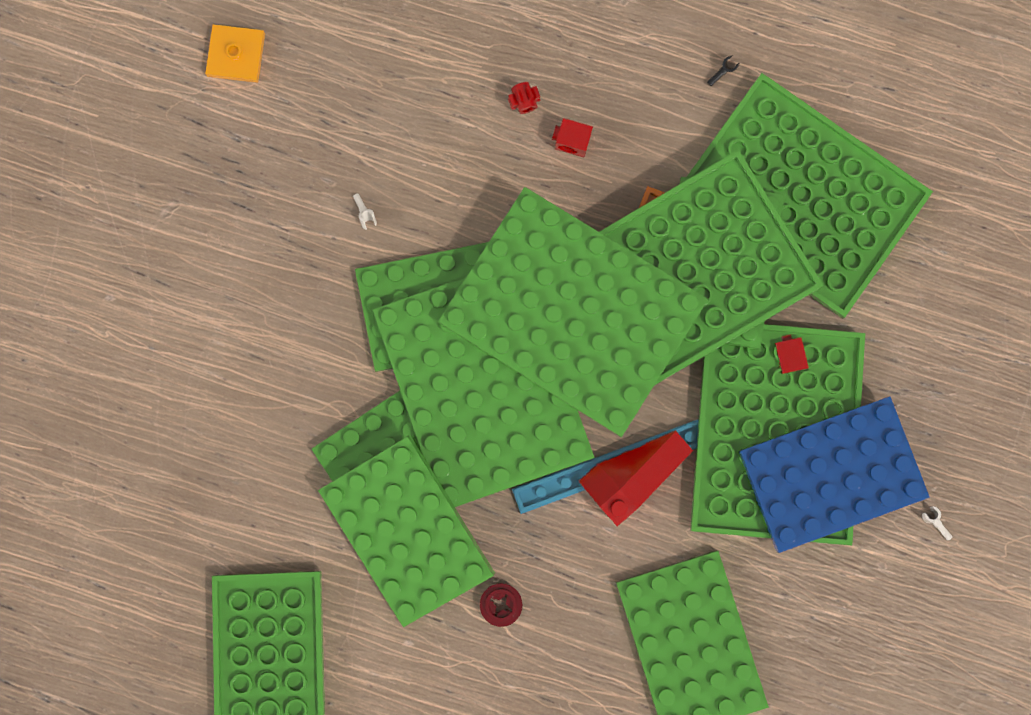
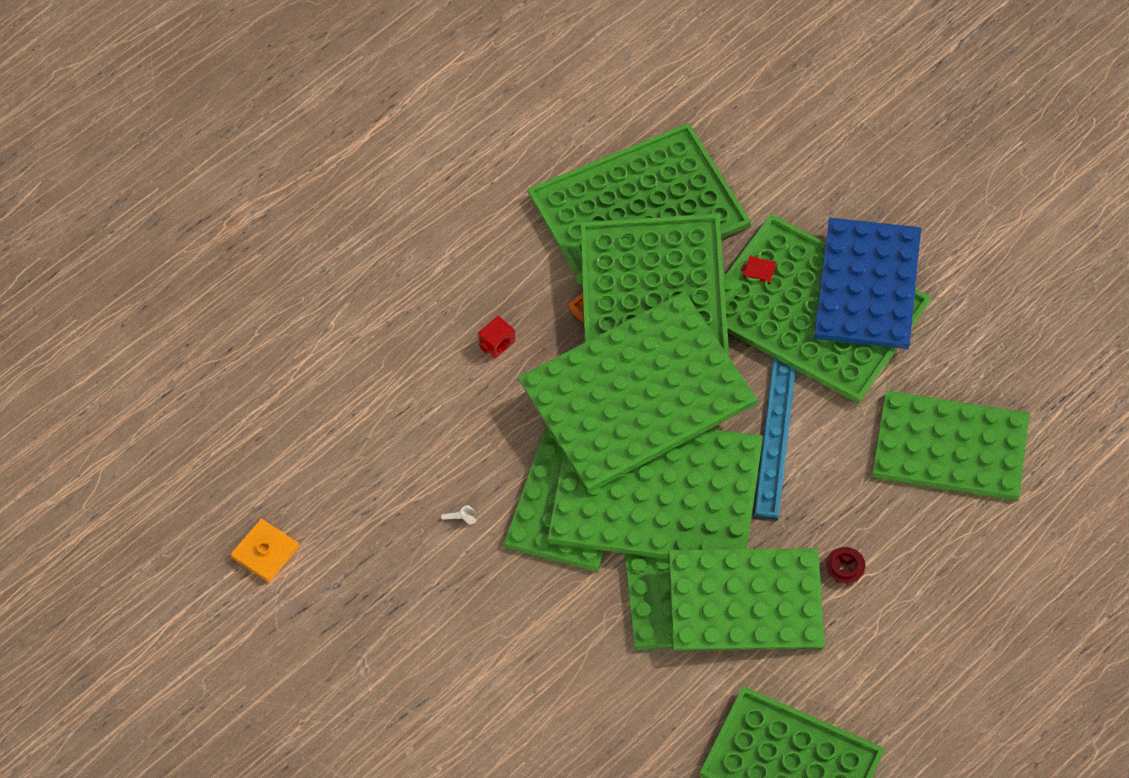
camera: 55 degrees left, 25 degrees down
(524, 97) = (442, 355): red gear -> none
(632, 477) = (794, 421): red wedge -> none
(722, 71) = (508, 214): black hand -> none
(936, 522) = (936, 233): white hand -> none

